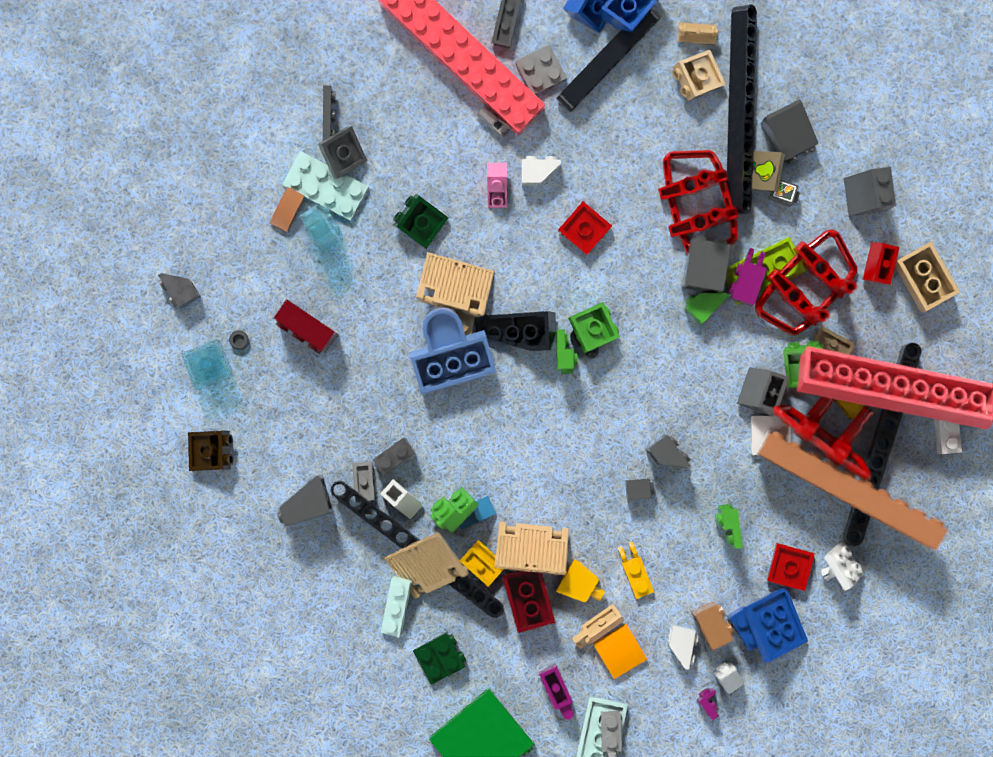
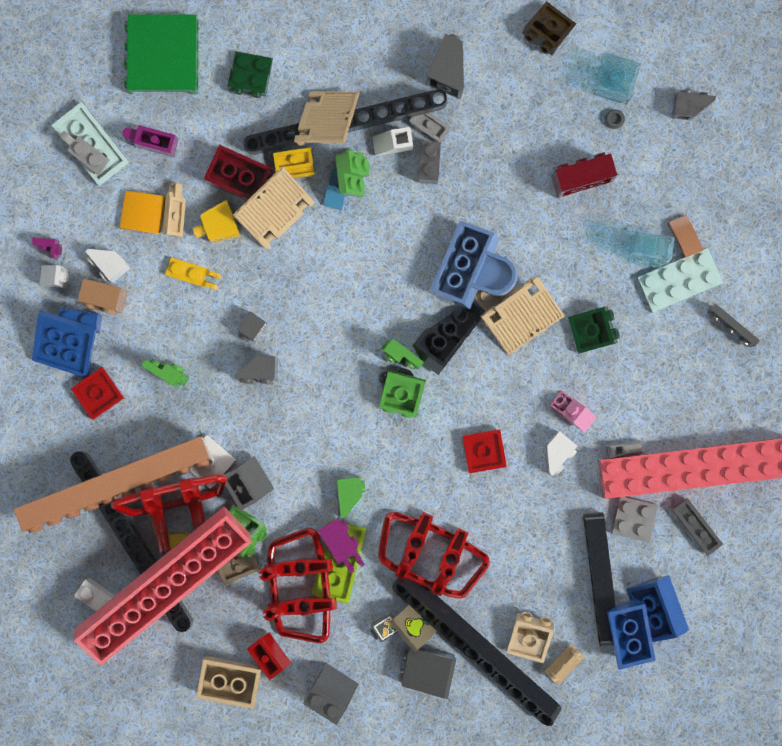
camera: 130 degrees right, 0 degrees up
(342, 152) = (695, 313): dark grey plate -> none
(396, 606) = (315, 72): light aqua plate -> none
(706, 265) = (378, 519): dark grey slope -> none
(842, 566) = (64, 432): white plate -> none

